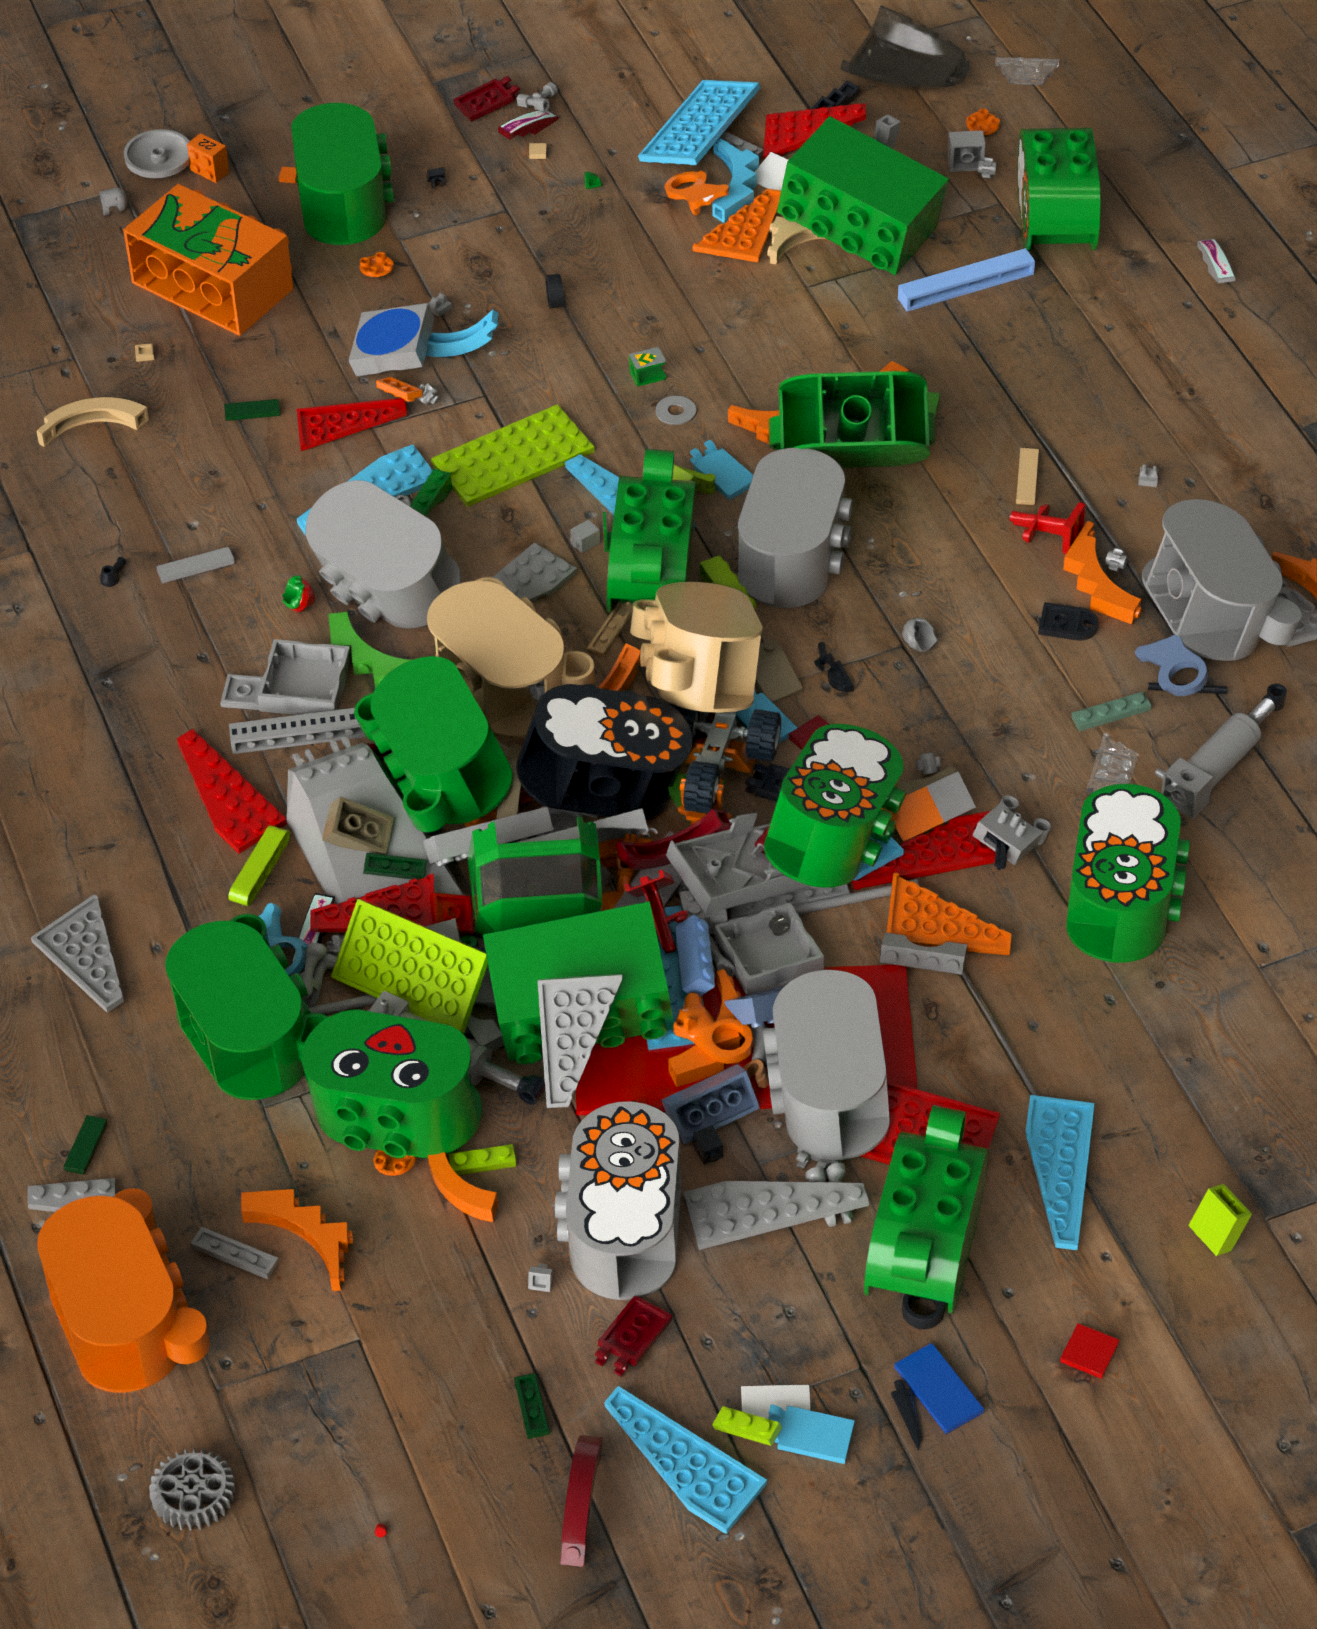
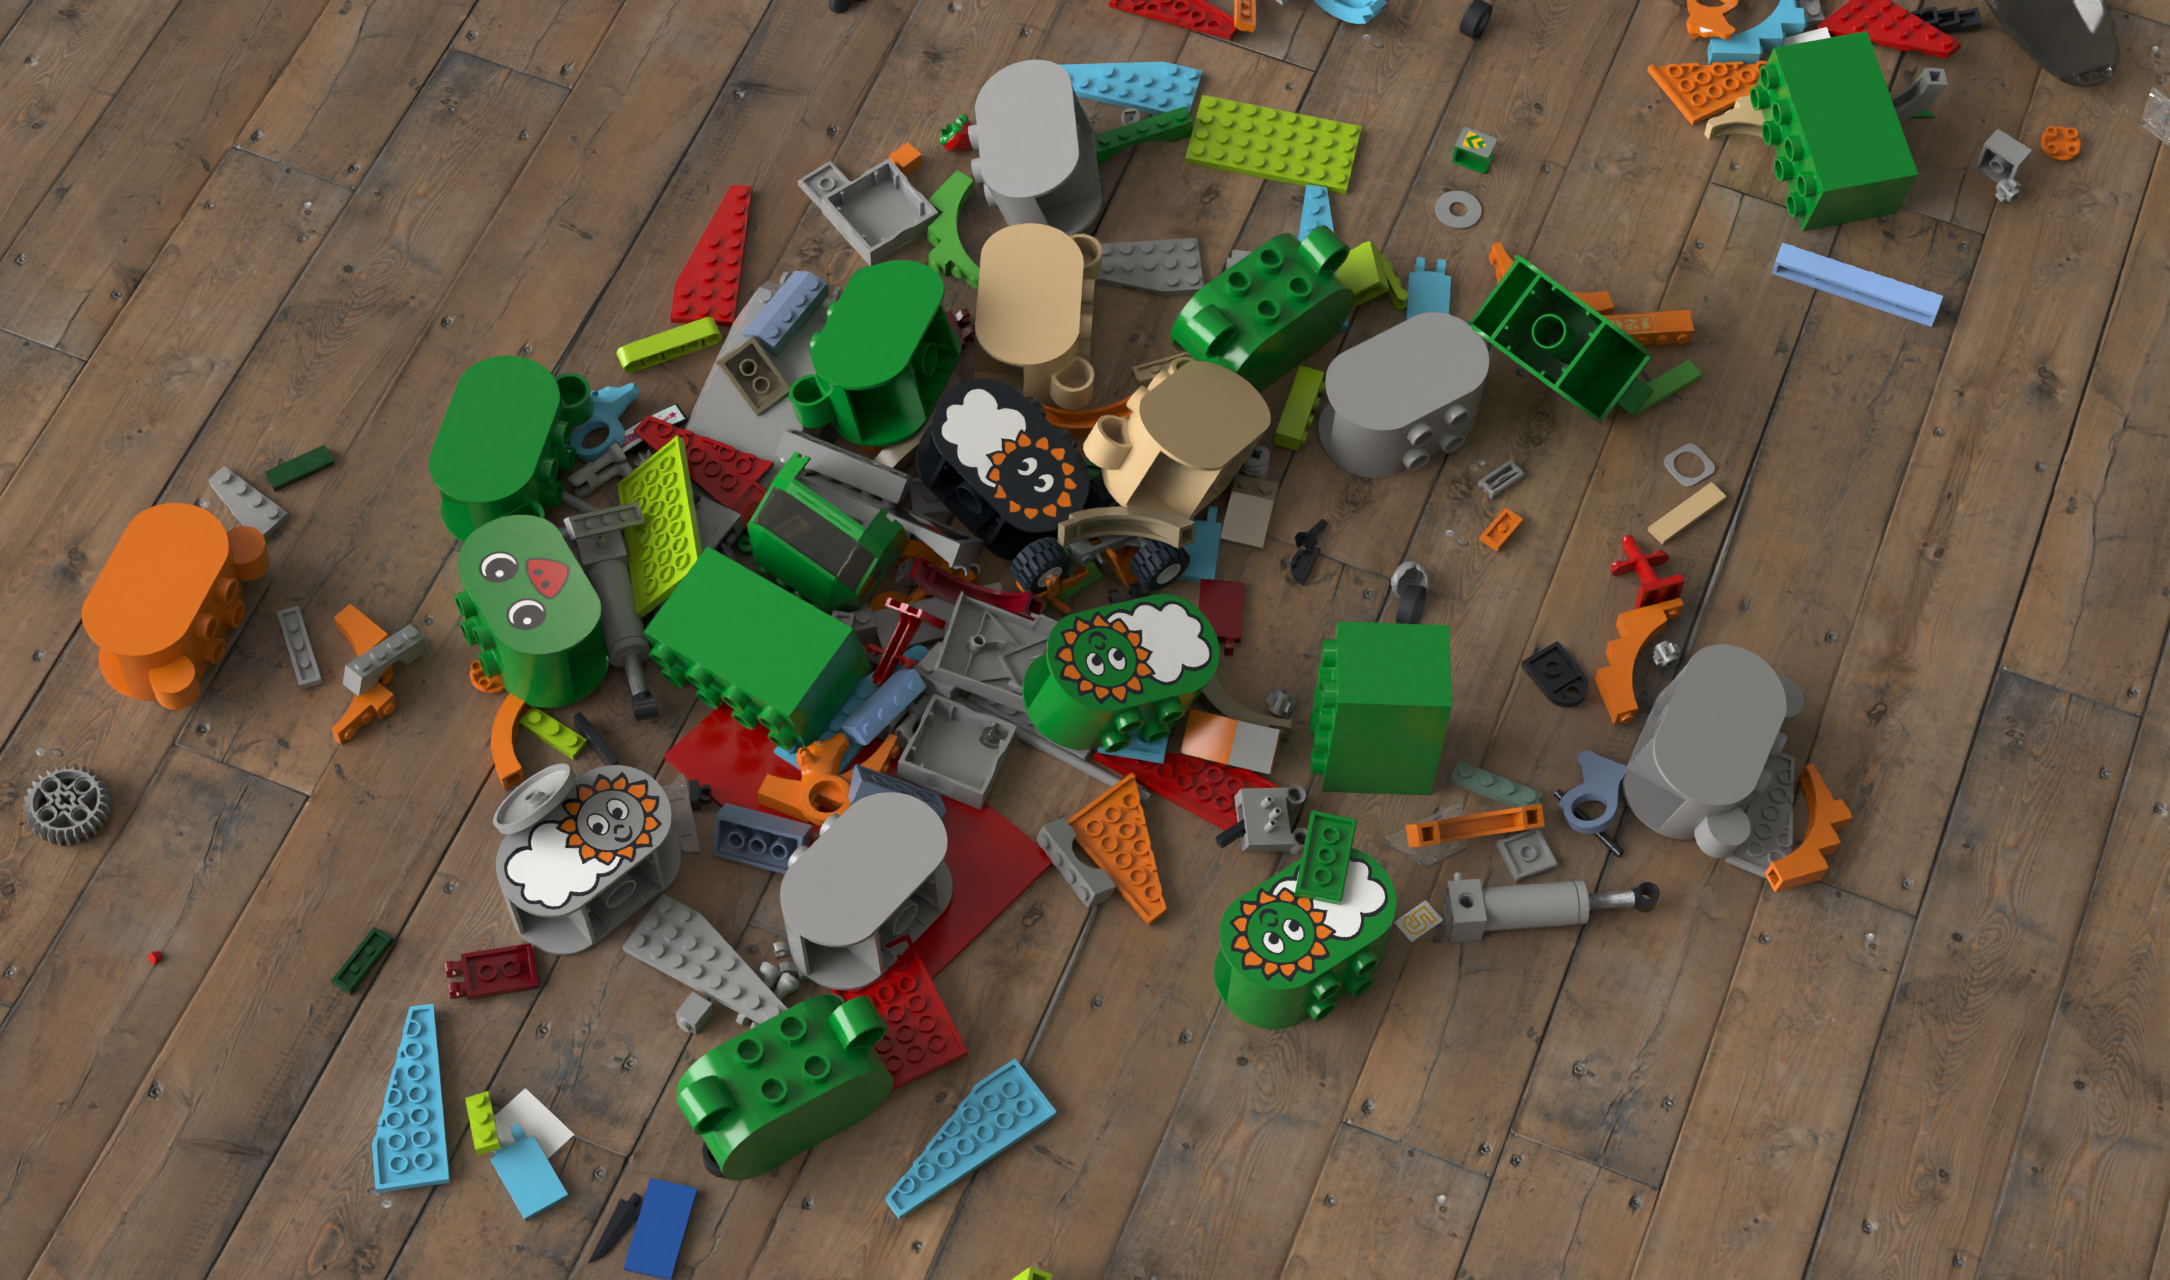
camera: 40 degrees right, 10 degrees up
(82, 951) = (467, 307): light grey wing -> none
(195, 565) = (914, 44): light grey tile -> none
(281, 631) = (907, 159): none -> orange brick
(294, 730) = (812, 244): light grey brick -> none
(314, 1205) = (366, 669): none -> light grey arch
(335, 766) = (787, 311): none -> sand blue slope
(373, 989) = (601, 522): none -> light grey fence
(394, 866) = (752, 431): dark green tile -> none
(428, 394) = (1264, 33): light grey gear -> none
(523, 1140) = (594, 740): none -> black tile
(540, 1278) = (480, 865): light grey tile -> none
(565, 1175) = (534, 798): none -> light grey dish
(570, 1023) = (692, 680): light grey wing -> none
(578, 1499) = (300, 1057): dark red arch -> none
(708, 1145) = (723, 872): black brick -> none
(732, 714) = (1127, 521): none -> dark tan arch
(797, 1243) = (693, 1013): none -> light grey brick
(894, 550) = (1489, 488): none -> light grey tile
(933, 566) = (1501, 529): none -> orange plate
(941, 647) = (1411, 605): none -> black tyre
(1003, 460) = (1685, 481): none -> light grey piece
(1021, 696) = (1381, 708): none -> green brick
(1058, 186) = (2029, 258): green brick -> none
(1095, 804) = (1325, 857): none -> green tile
(1126, 744) = (1475, 825): none -> orange arch
(1148, 476) = (1795, 601): light grey tile -> none
(1175, 733) = (1527, 854): none -> light grey tile
(1216, 260) = (2114, 445): slope -> none

